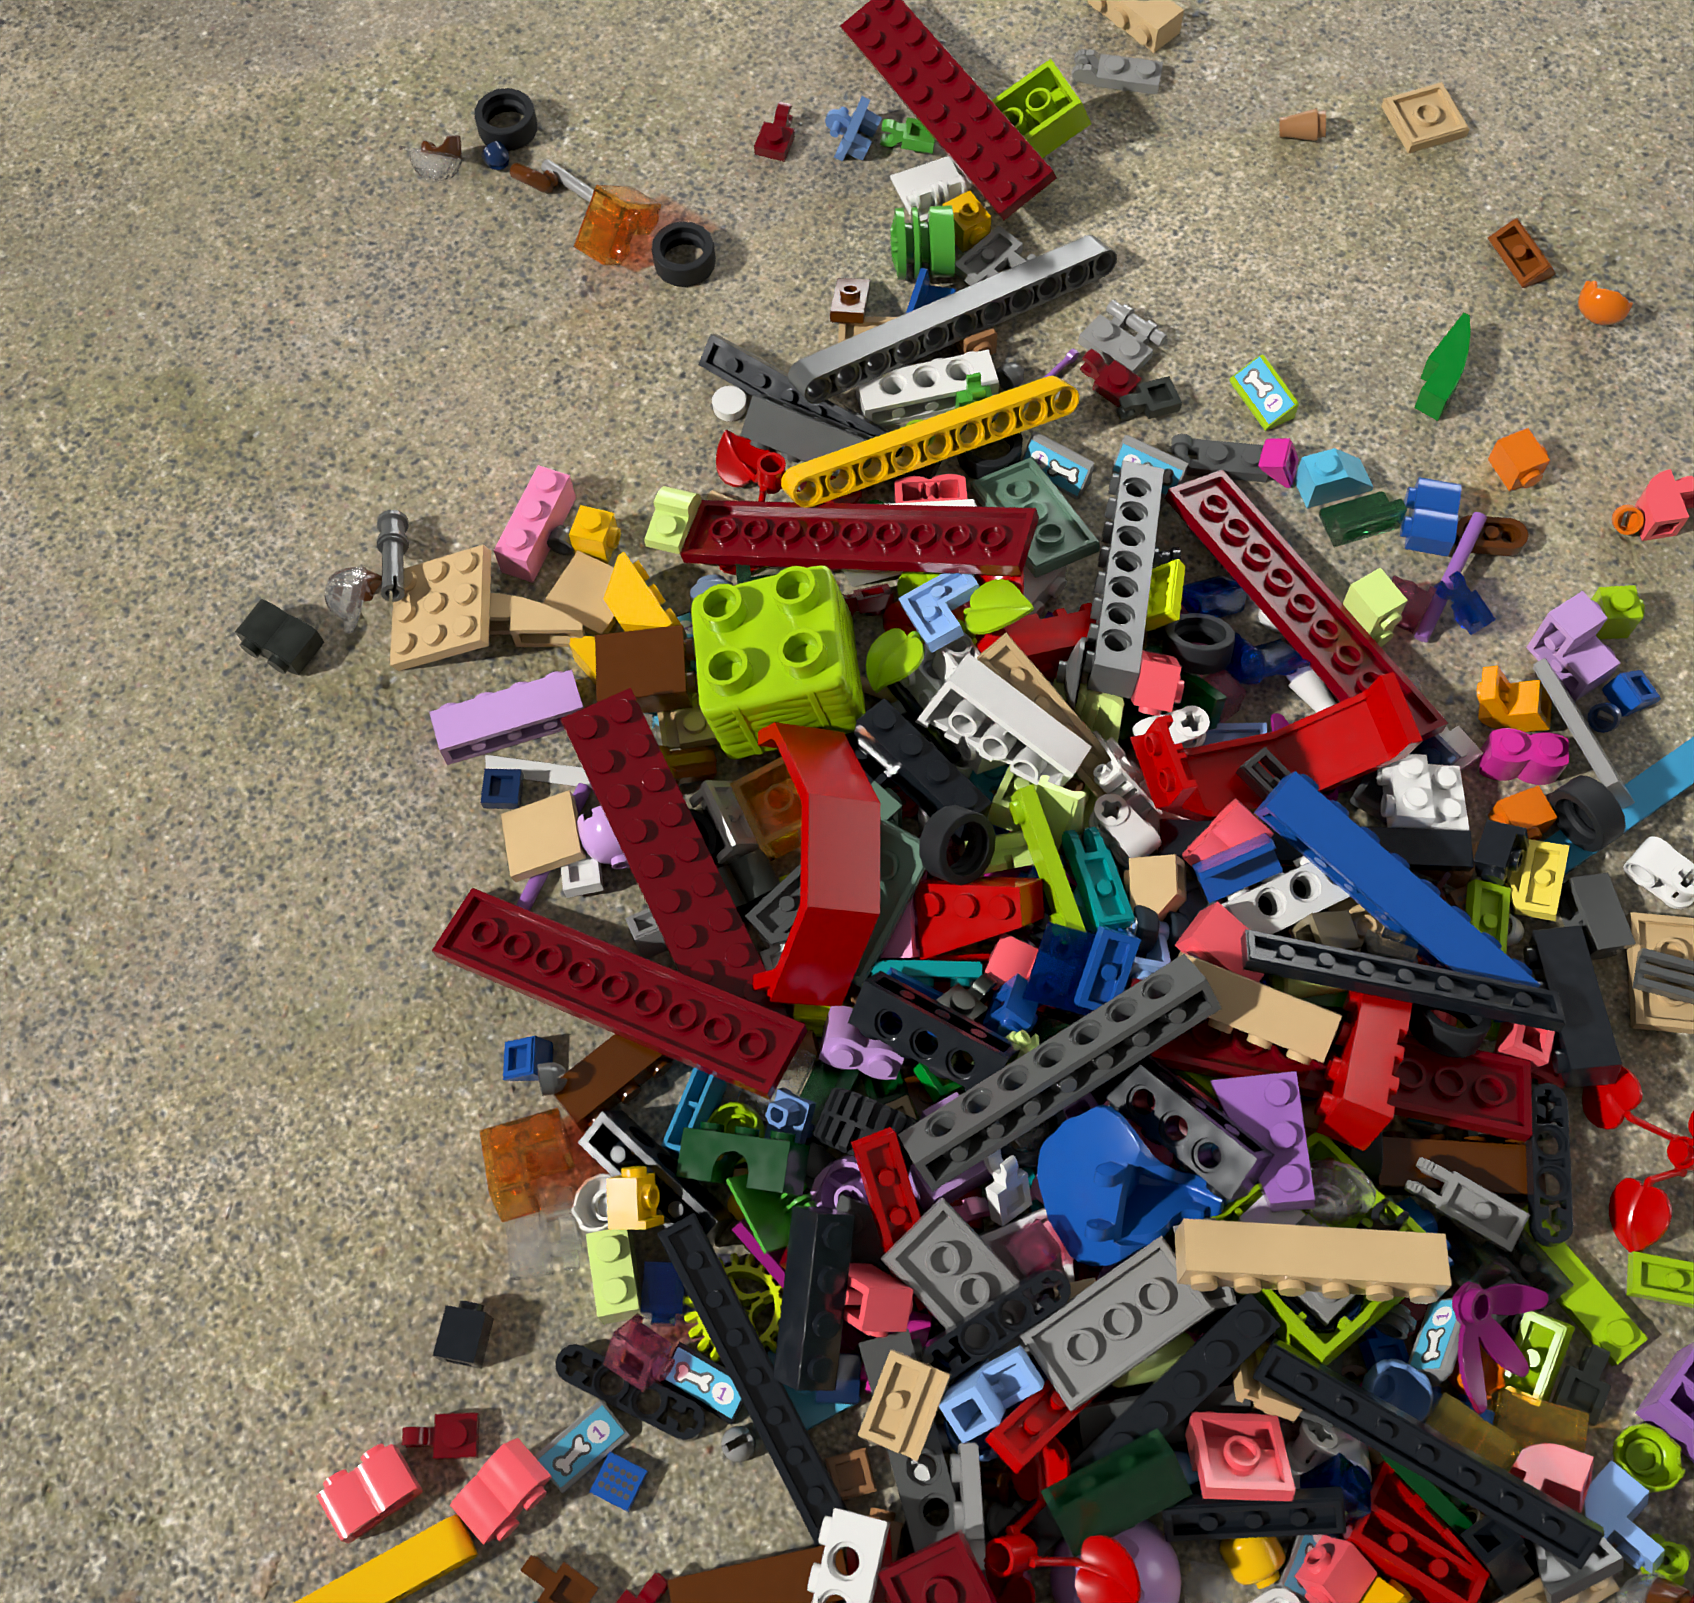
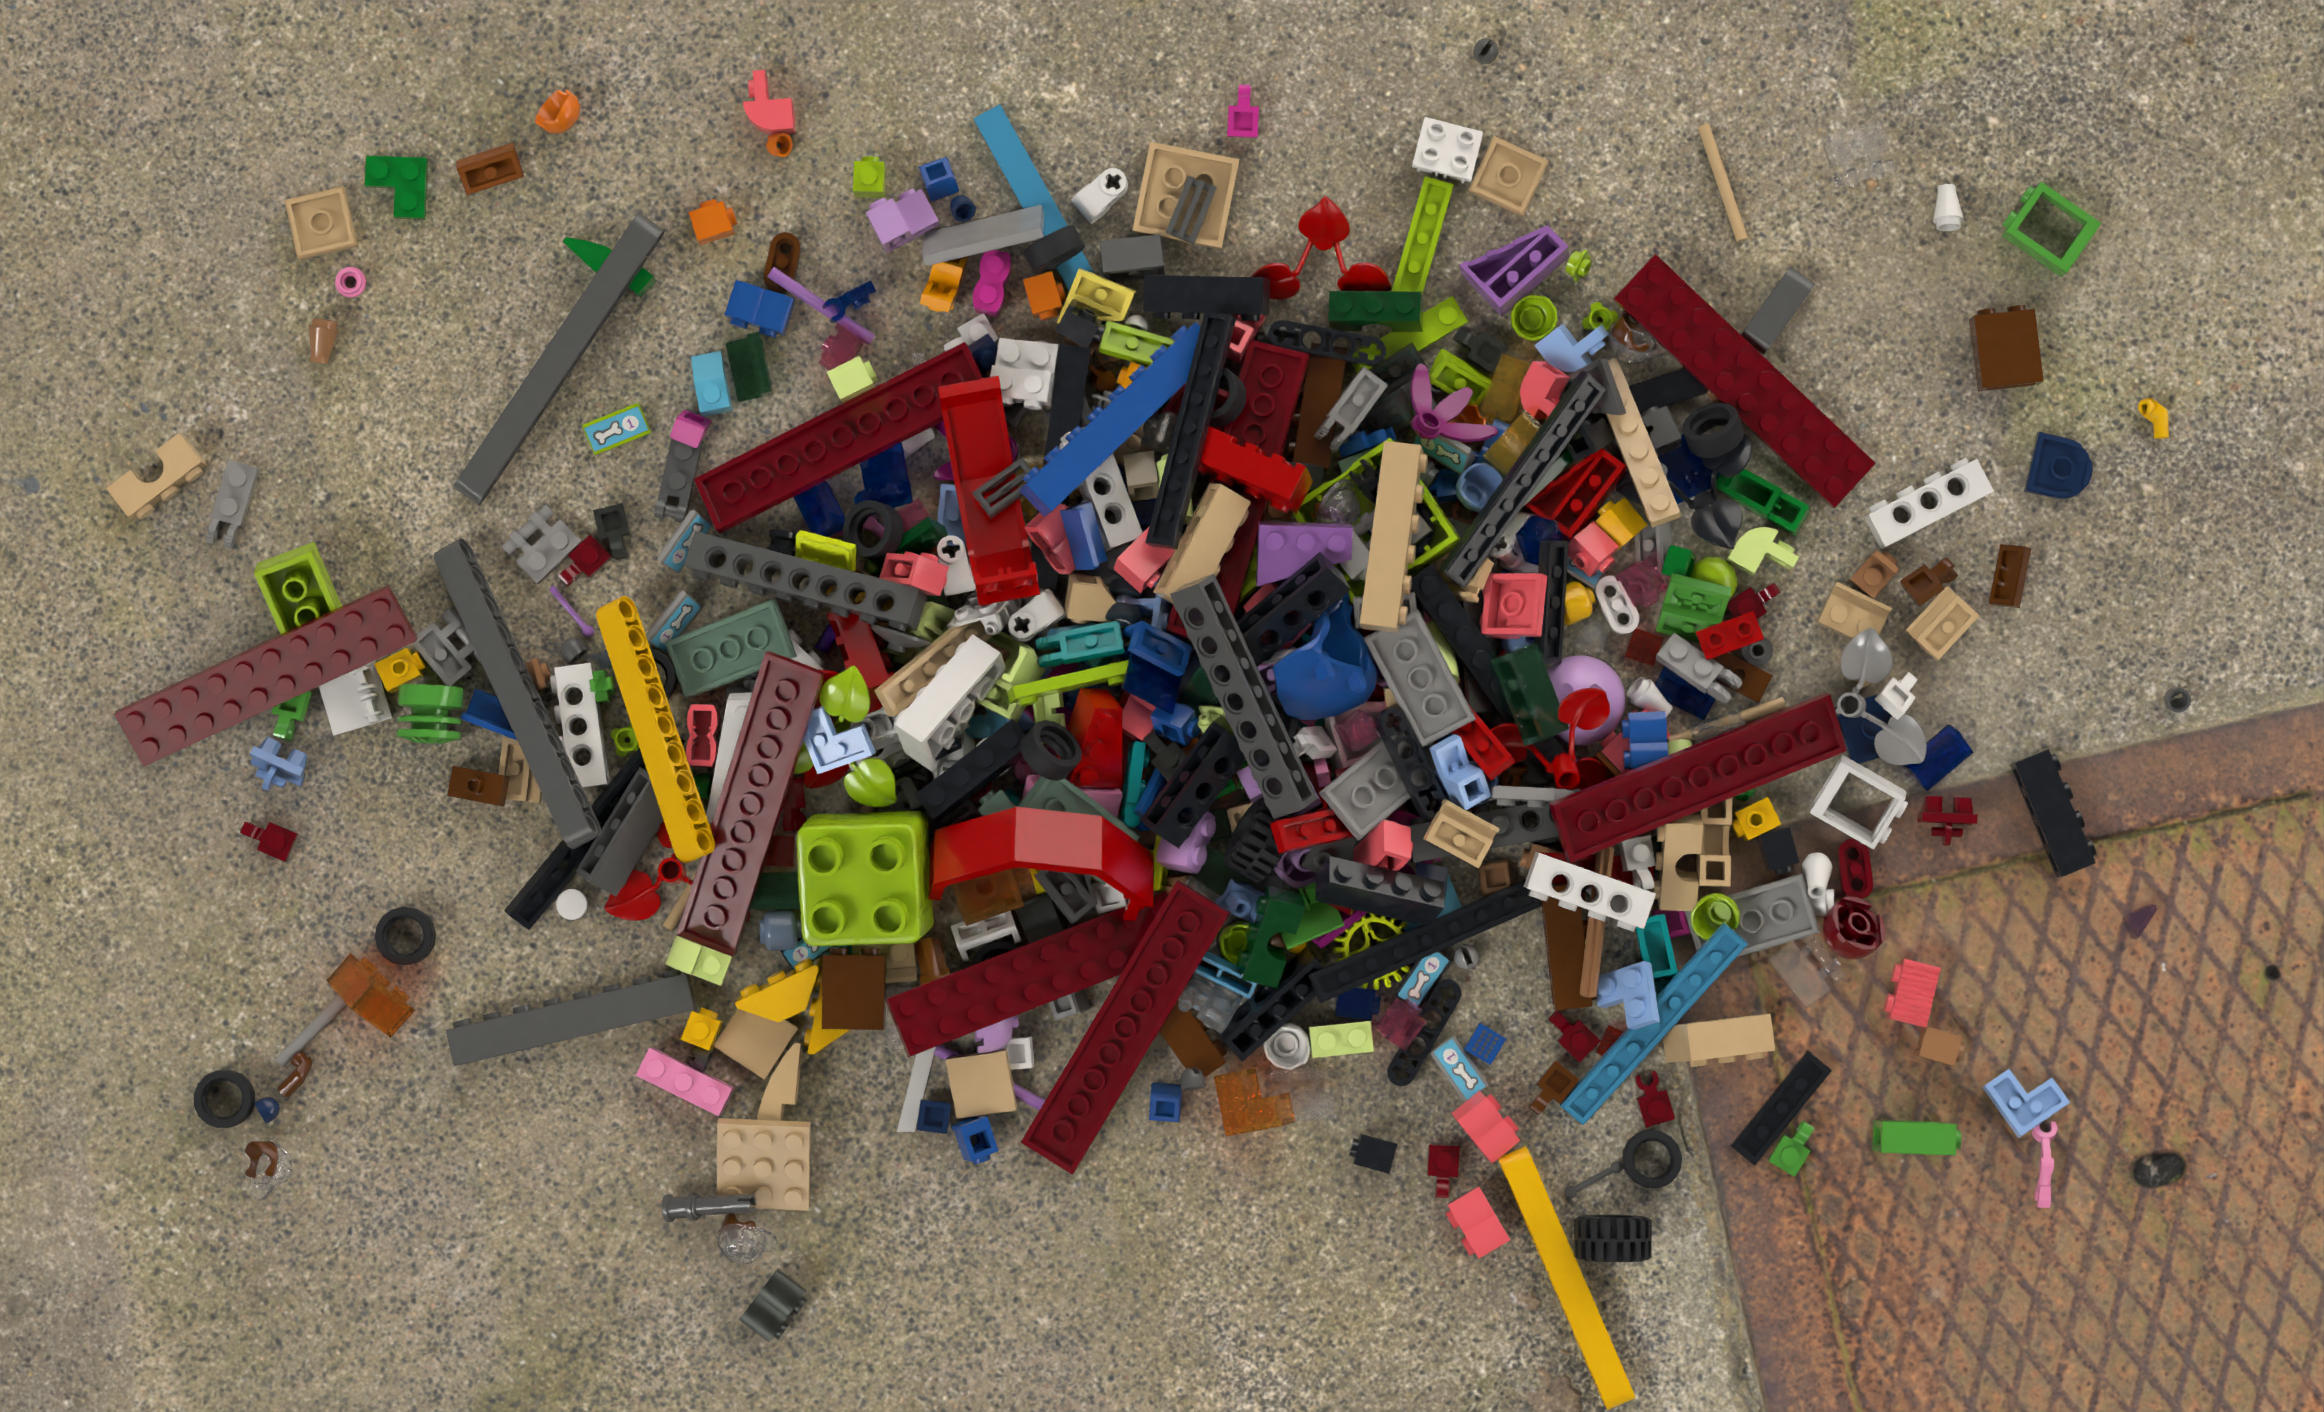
camera: 85 degrees left, 20 degrees up
(459, 834) = (985, 1141): none -> blue brick
(505, 716) = (869, 1109): lavender brick -> none
(602, 411) = (570, 1019): none -> dark grey brick
(633, 1200) = (1295, 1019): yellow brick -> none
(642, 1099) = (1213, 1001): none -> clear plate
(1338, 322) = (559, 359): none -> dark grey beam
(1369, 144) = (344, 275): none -> bright pink plate
(1489, 184) = (404, 175): none -> green plate
(1615, 1258) = (1390, 308): none -> dark green arch

